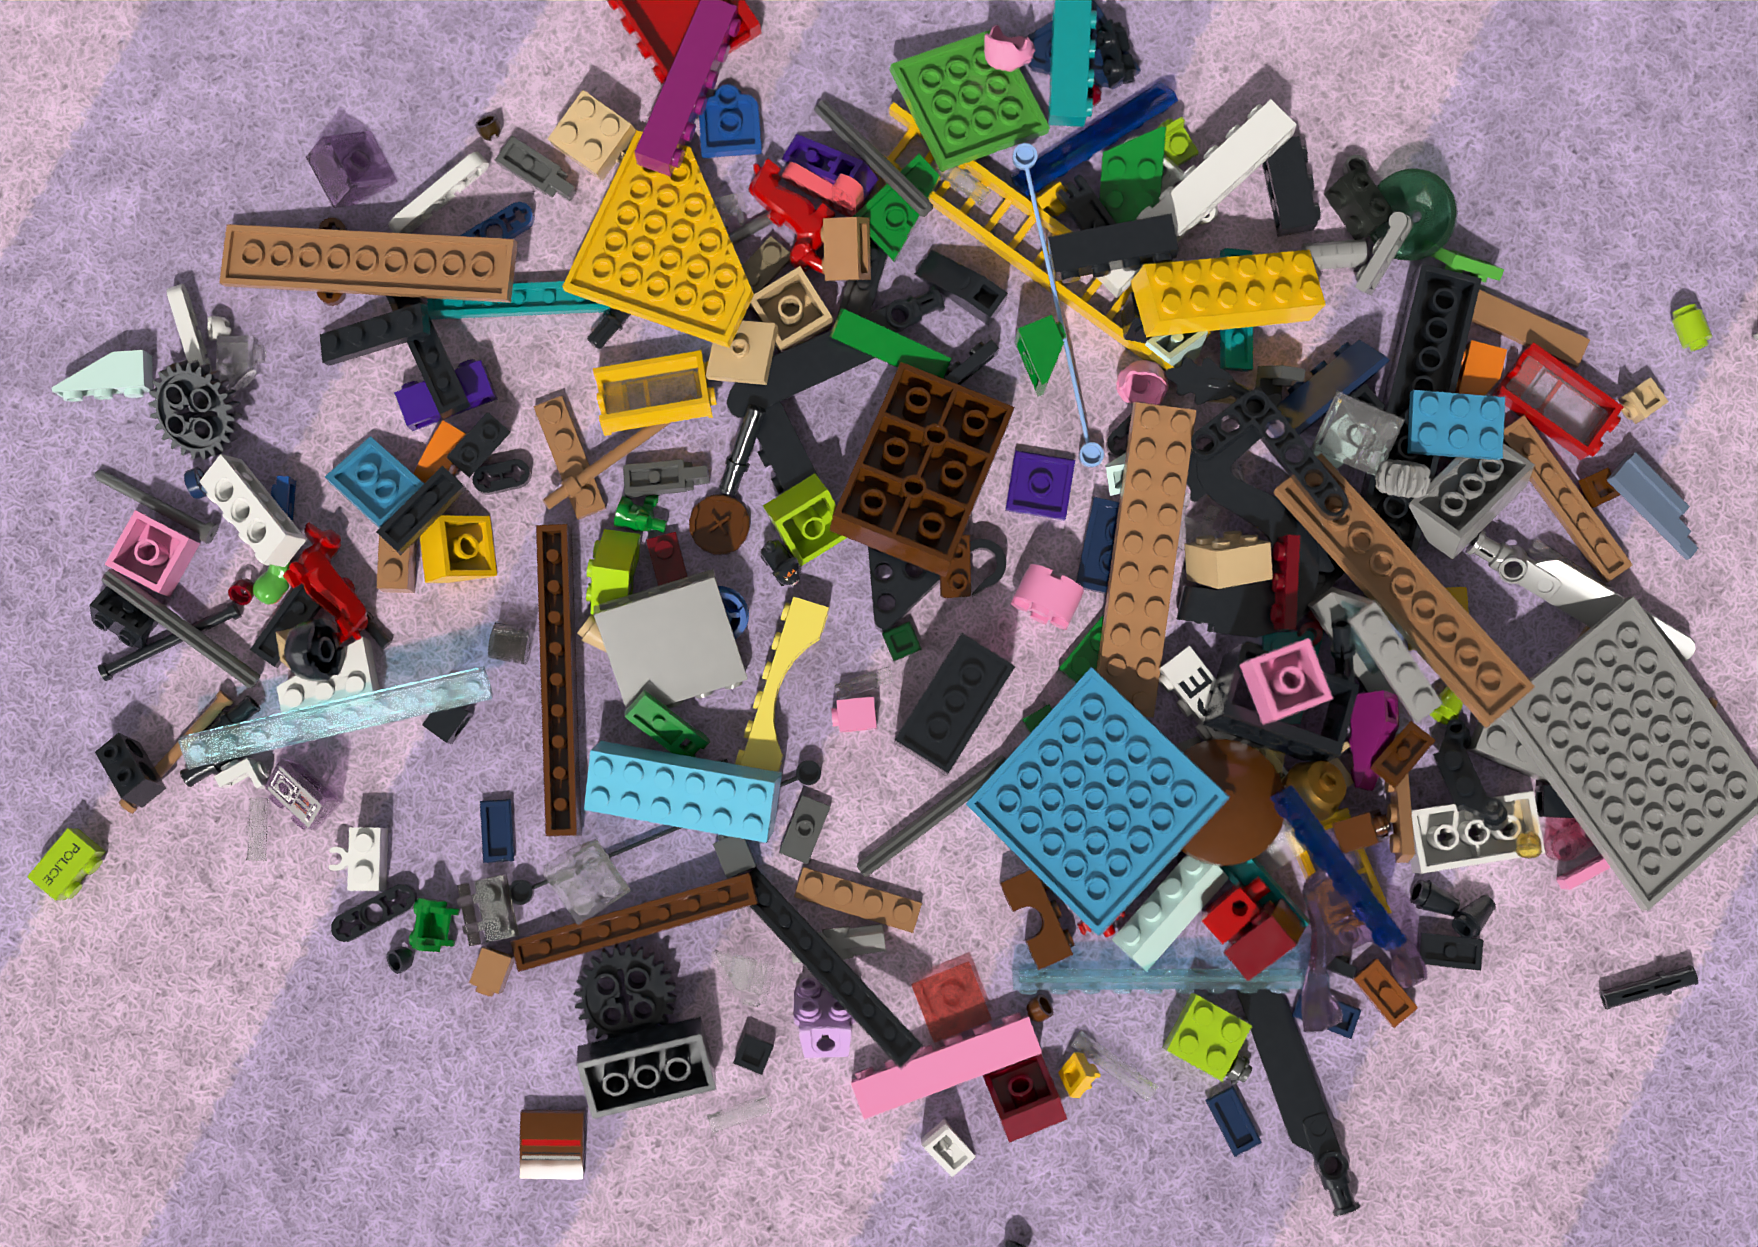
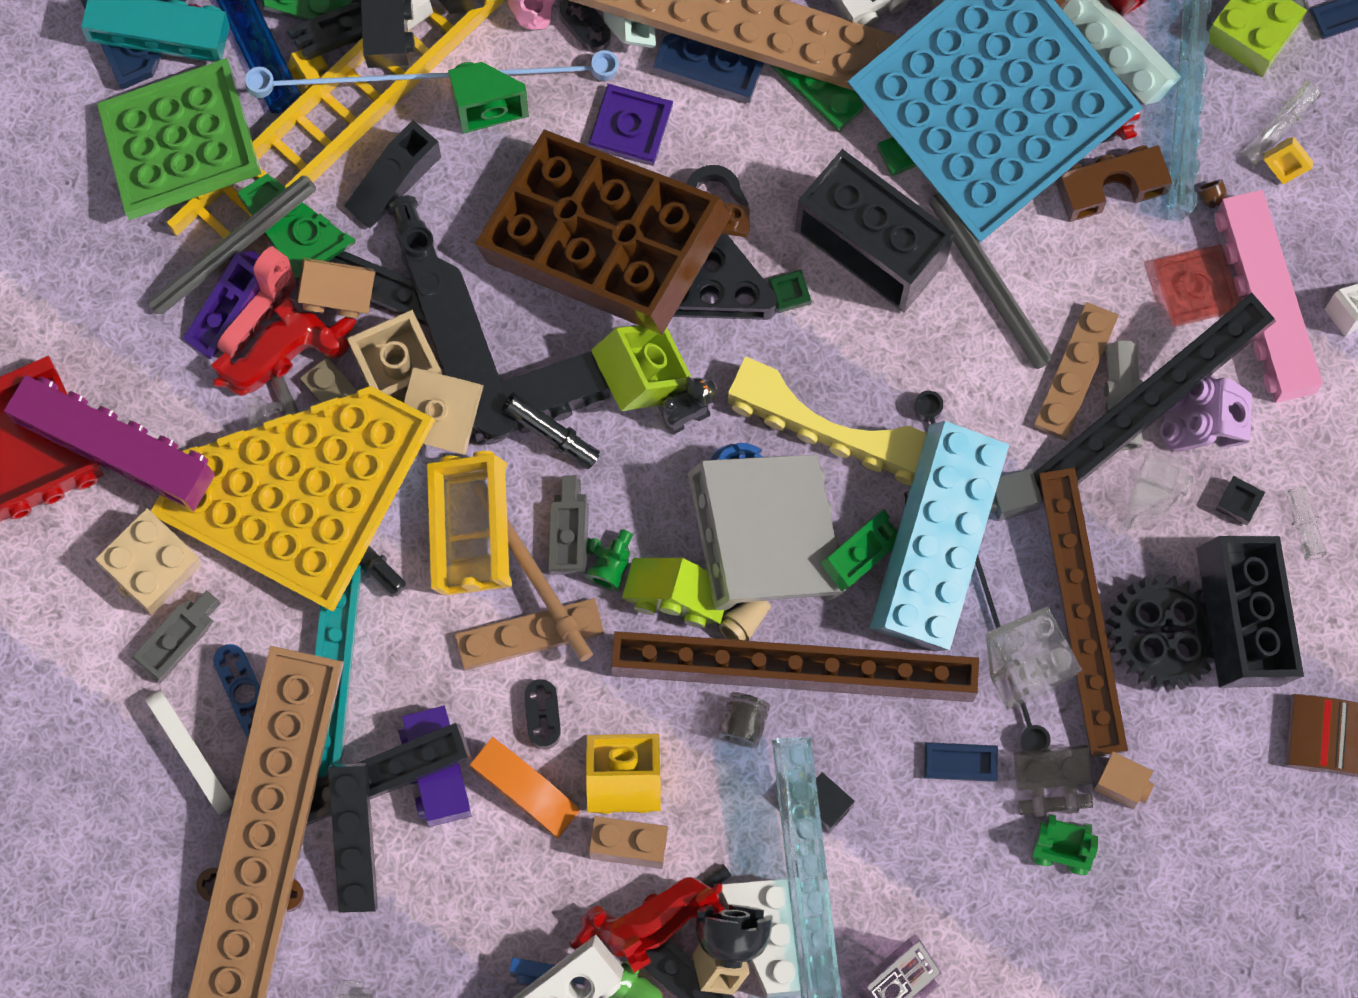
camera: 85 degrees left, 10 degrees down
(349, 916) = (1025, 892): black beam -> none
(350, 168) = (139, 854): clear purple slope -> none
(364, 859) = (981, 914): white brick -> none
(374, 481) = (535, 853): dark azure plate -> none
(400, 959) = (1102, 888): black hinge -> none
(421, 510) = (578, 793): black plate -> none
(478, 444) = (506, 727): black bracket -> none
(488, 127) = (114, 685): dark brown hinge -> none
(667, 558) = (667, 536): dark red plate -> none
(719, 524) = (631, 474): reddish brown tile -> none
(730, 124) = (162, 405): blue plate -> none
(804, 829) = (991, 418): dark grey plate -> none
(854, 714) = (869, 346): bright pink brick -> none
(864, 683) = (832, 336): clear axle -> none
(886, 344) = (450, 260): green tile -> none
(964, 182) = (272, 159): clear pin -> none
(979, 356) = (477, 167): black plate -> none
(1007, 52) = (132, 89): bright pink hair -> none
(1025, 1097) = (1310, 217): dark red slope -> none
(1048, 596) = (760, 123): bright pink brick -> none

